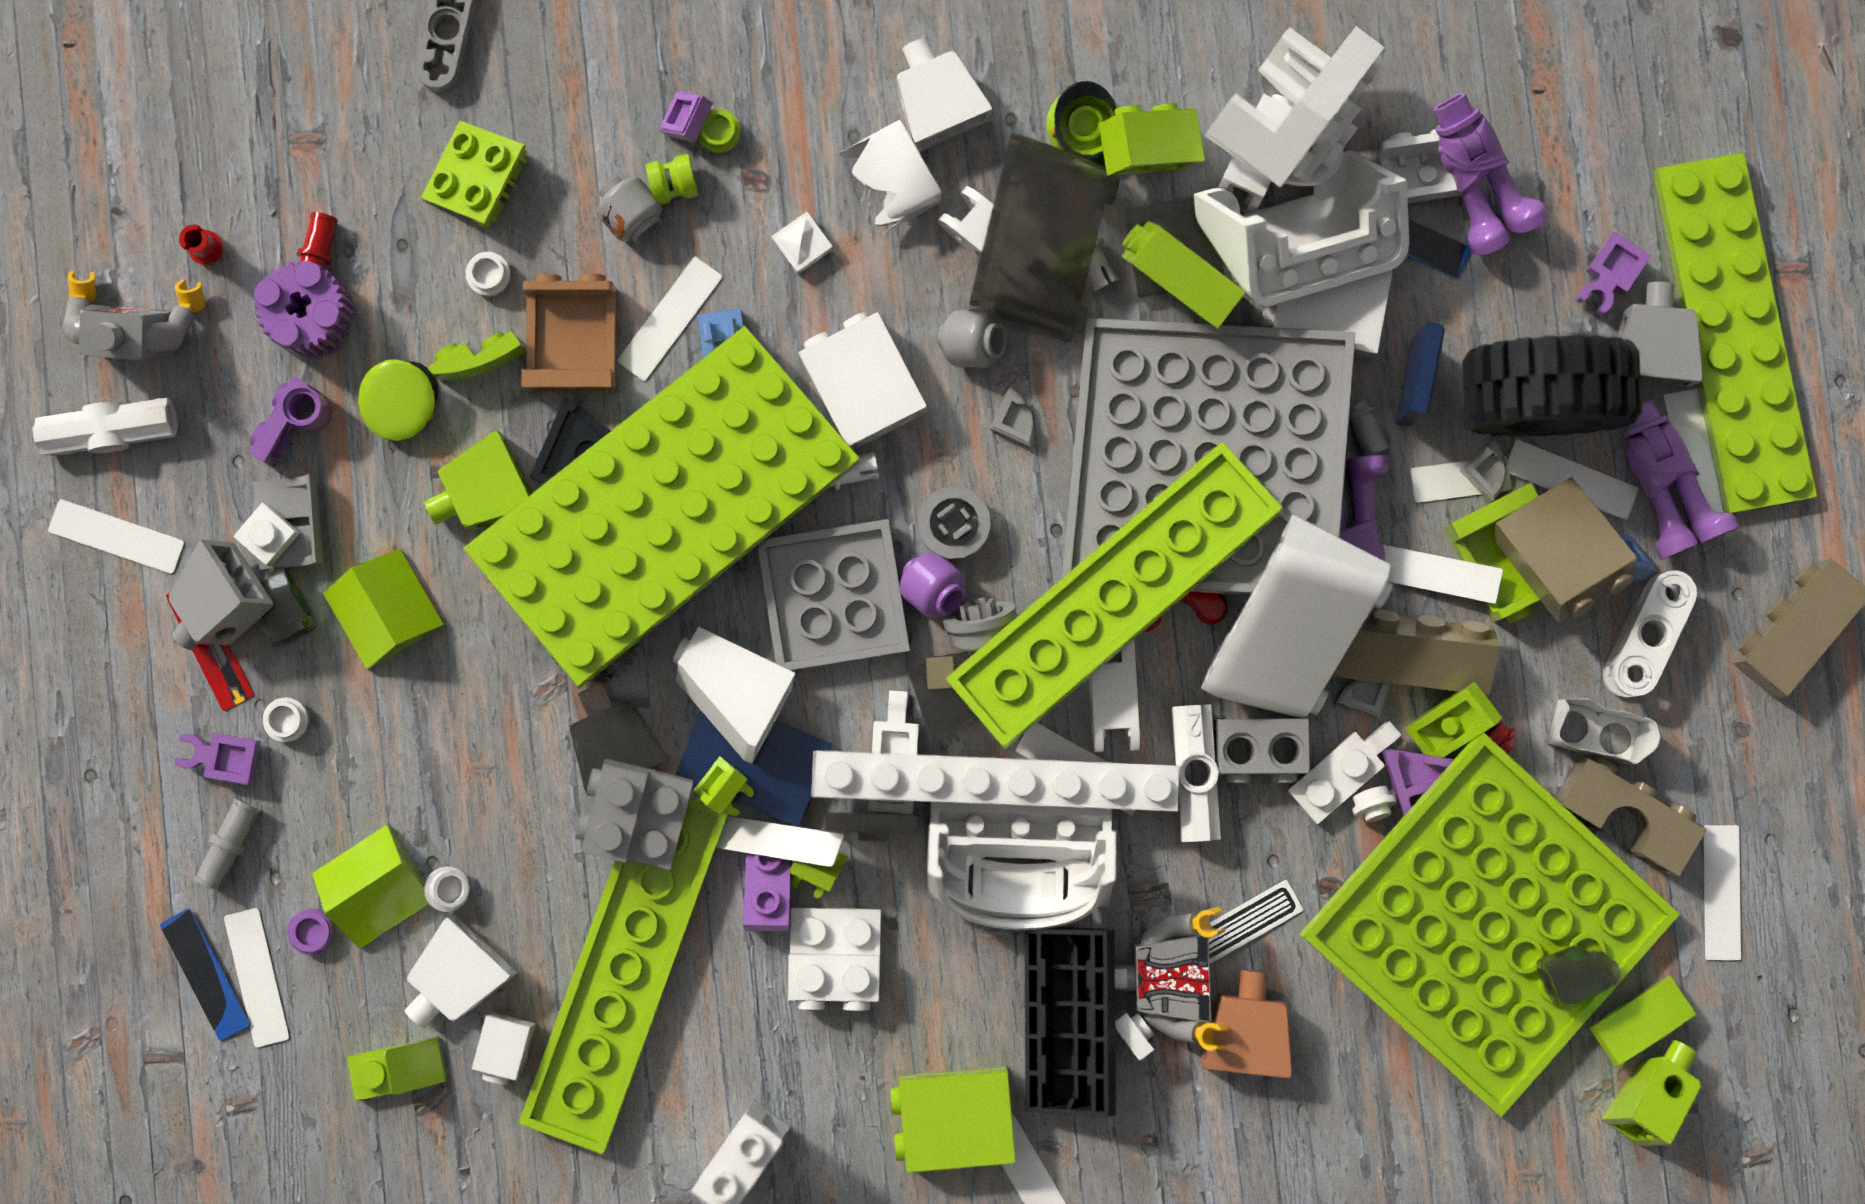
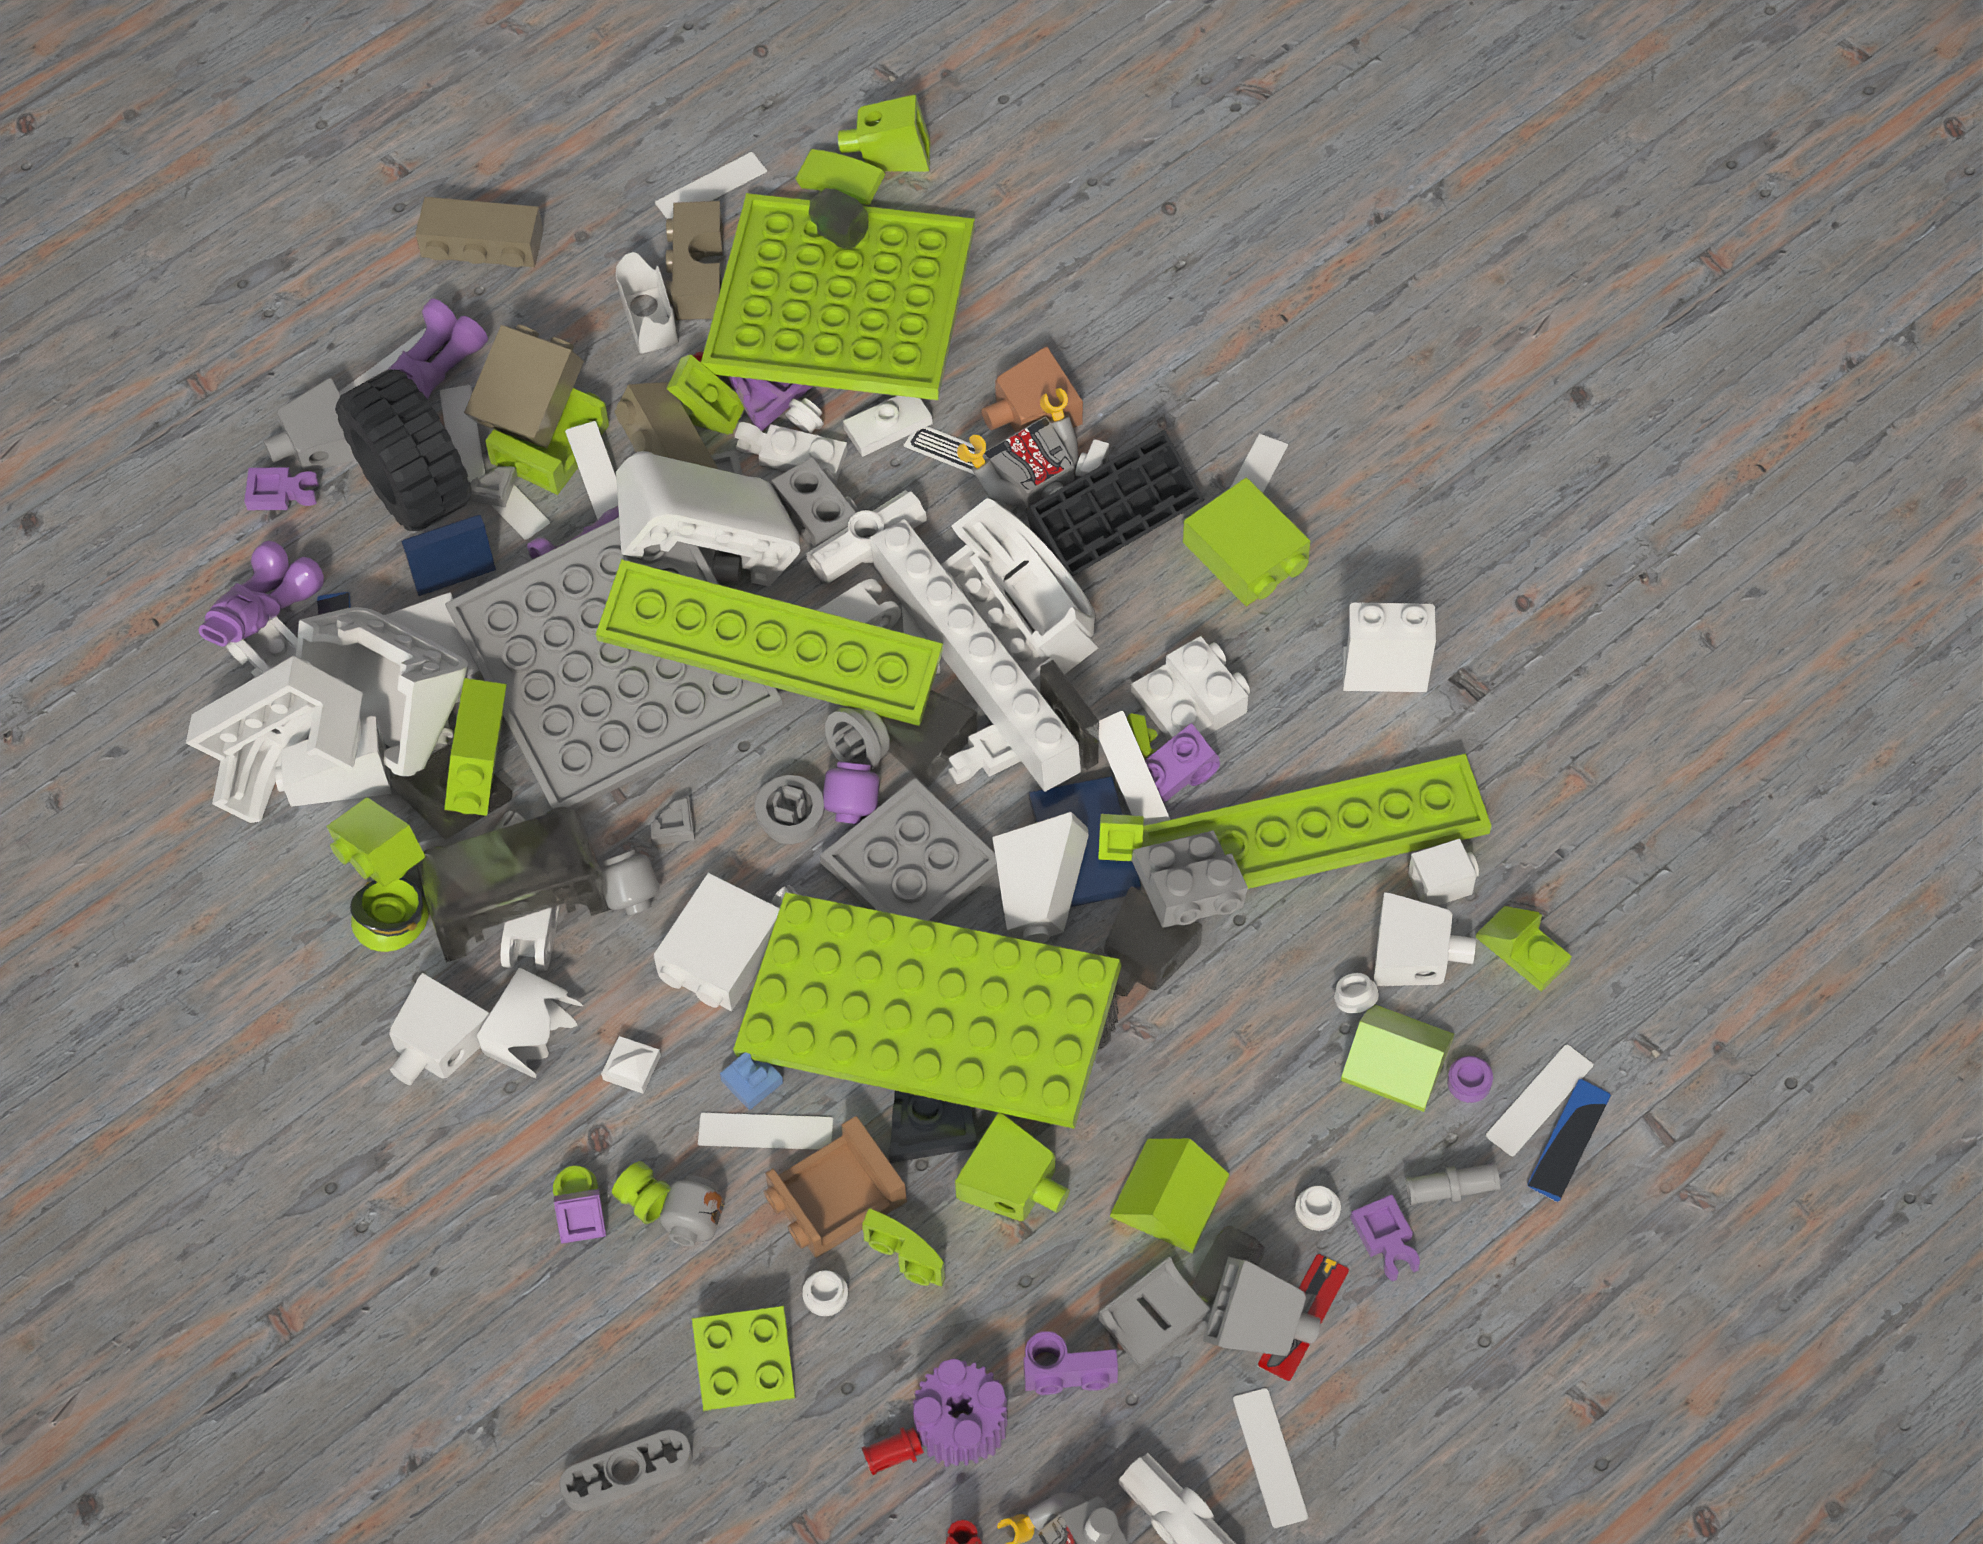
camera: 125 degrees left, 25 degrees down
(266, 534) = (1175, 1316): white plate -> none
(397, 398) = (983, 1289): lime piece -> none
(937, 670) = (916, 737): dark tan window -> none
(1316, 873) = (886, 423): none -> white plate
(1668, 619) = (555, 313): white piece -> none
(1743, 353) = (242, 412): lime plate -> none

